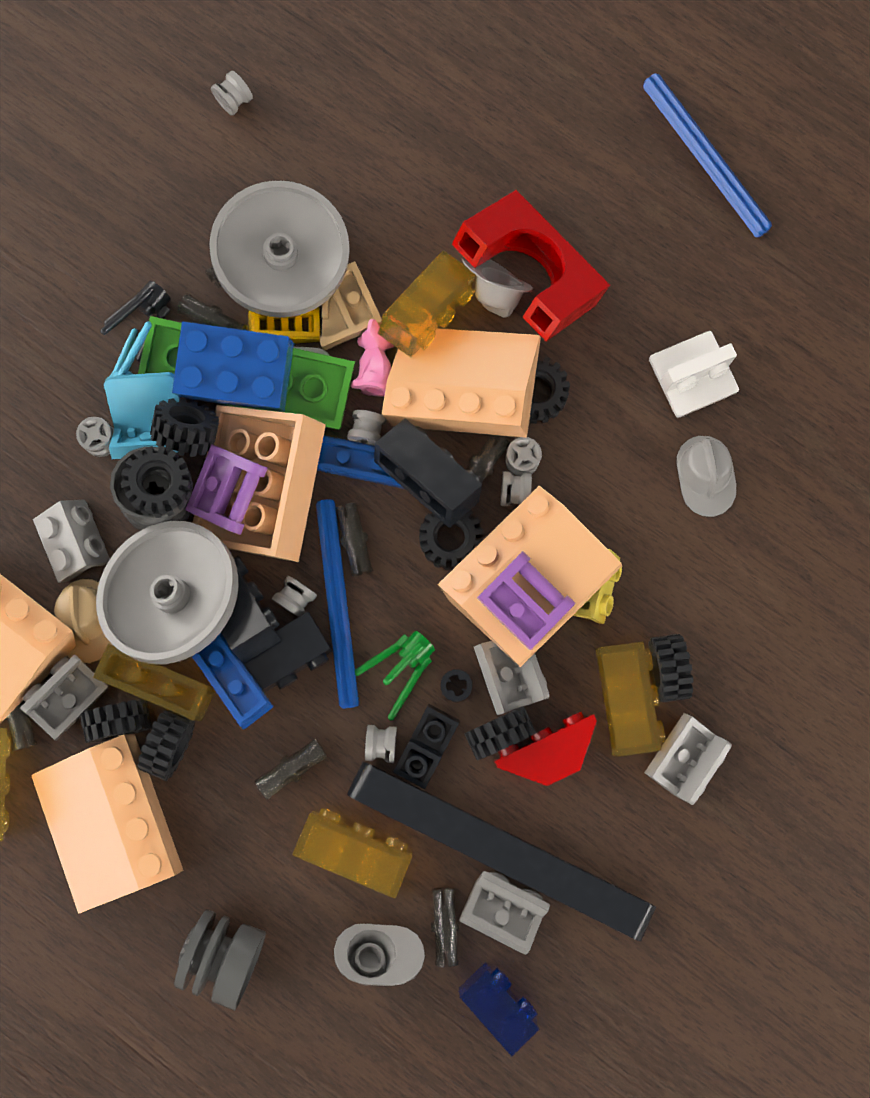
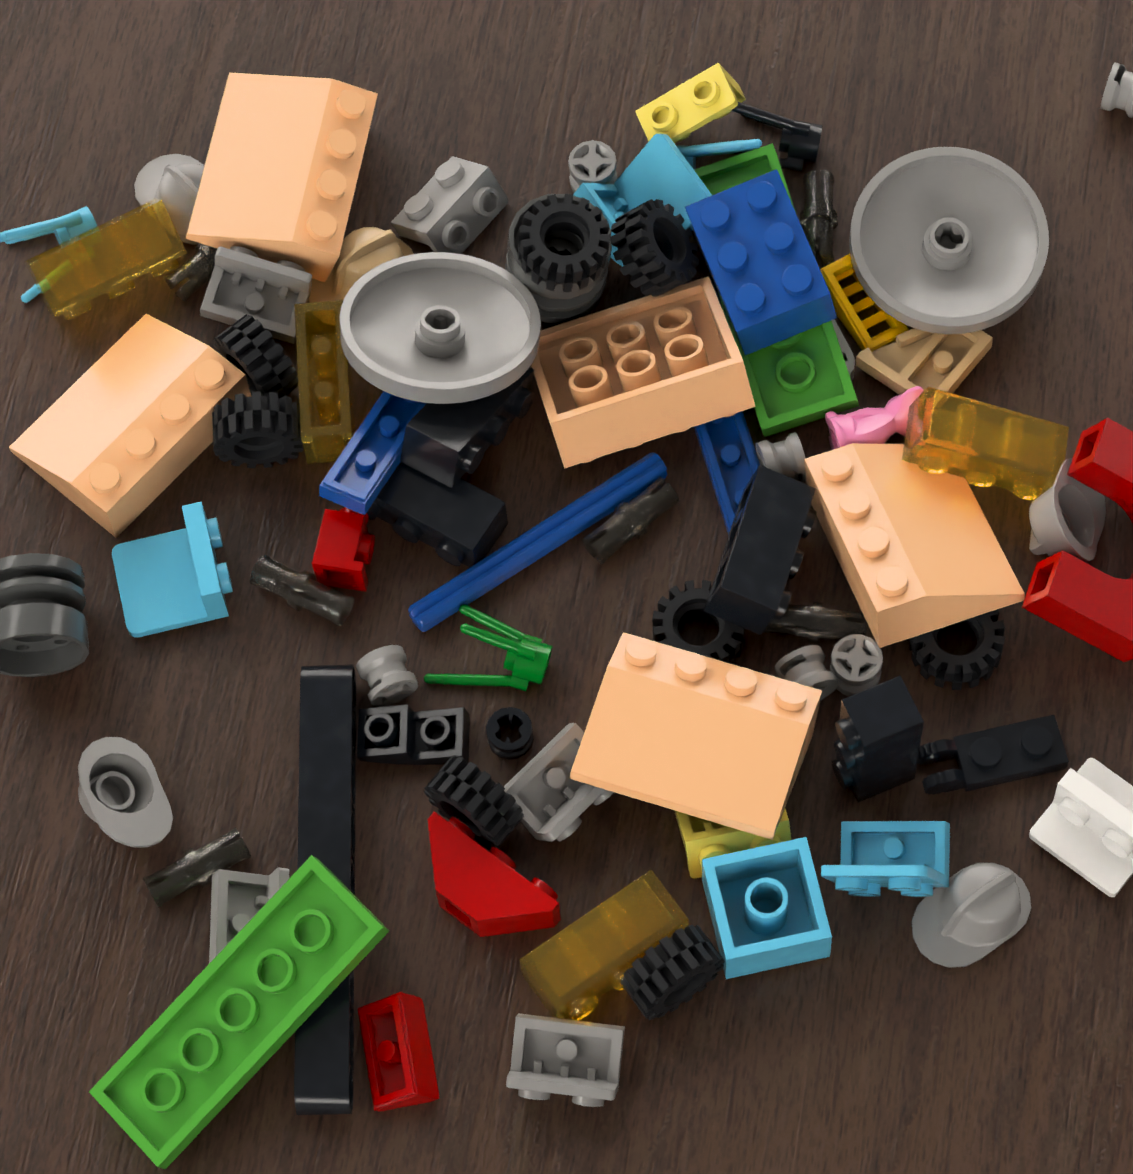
camera: 70 degrees right, 15 degrees down
(95, 351) = (691, 105): none -> light yellow bracket
(216, 487) = (604, 320): medium lavender plate -> none
(236, 849) = (173, 576): none -> medium azure bracket
(278, 729) = (343, 550): none -> red brick
(291, 599) = (512, 484): light grey wheel -> none
(353, 852) = (235, 711): clear yellow brick -> none
(499, 1010) = (126, 974): clear blue brick -> none
(517, 609) = (637, 725): medium lavender plate -> none
(567, 949) = (238, 1012): none -> bright green plate
(595, 469) = (877, 739): none -> black brick
(619, 407) = (995, 756): none -> black hinge
(627, 857) = (398, 1052): none -> red slope
(656, 591) = (766, 907): none -> medium azure brick
(665, 504) = (891, 855): none -> medium azure bracket

